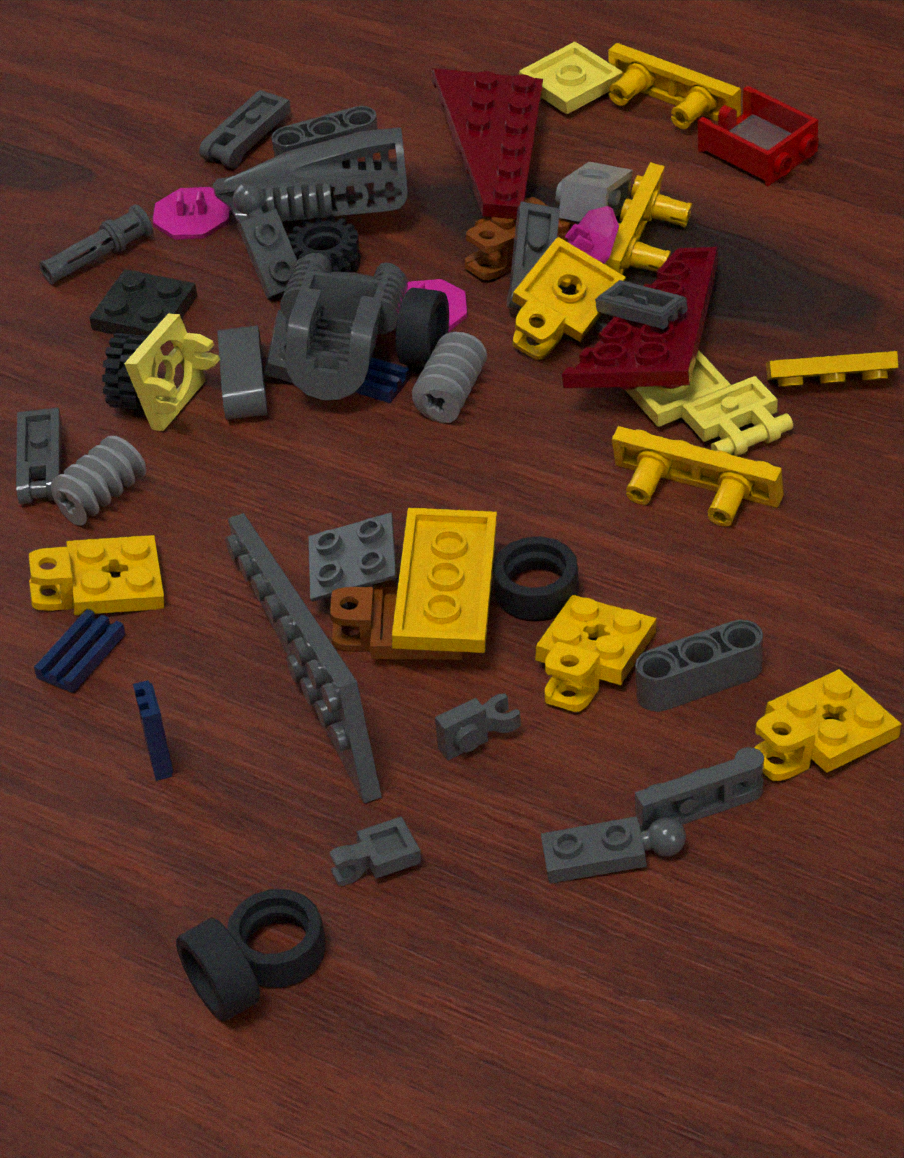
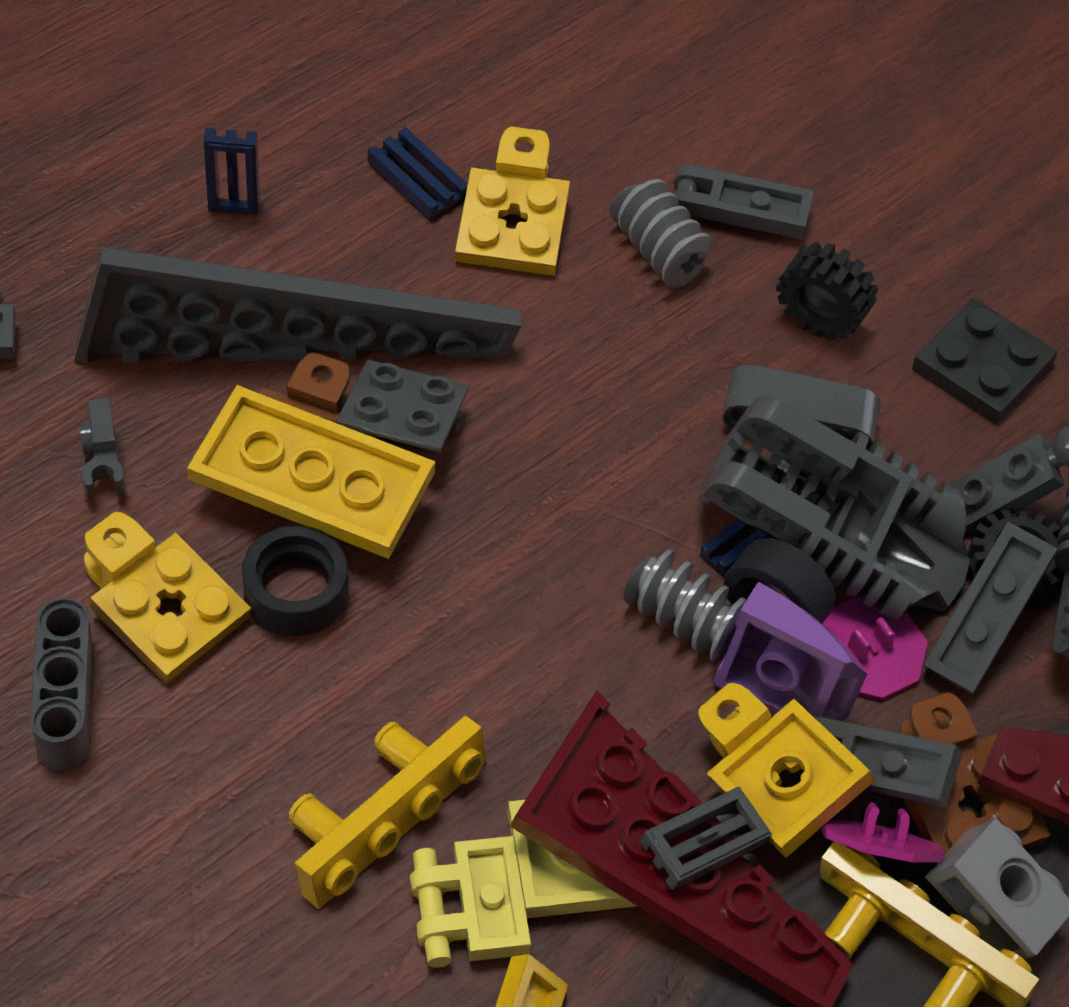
camera: 100 degrees right, 10 degrees up
(160, 396) = (823, 296): light yellow piece -> none
(383, 237) = (990, 608): none -> dark grey plate
(477, 307) = (789, 656): none -> medium lavender slope

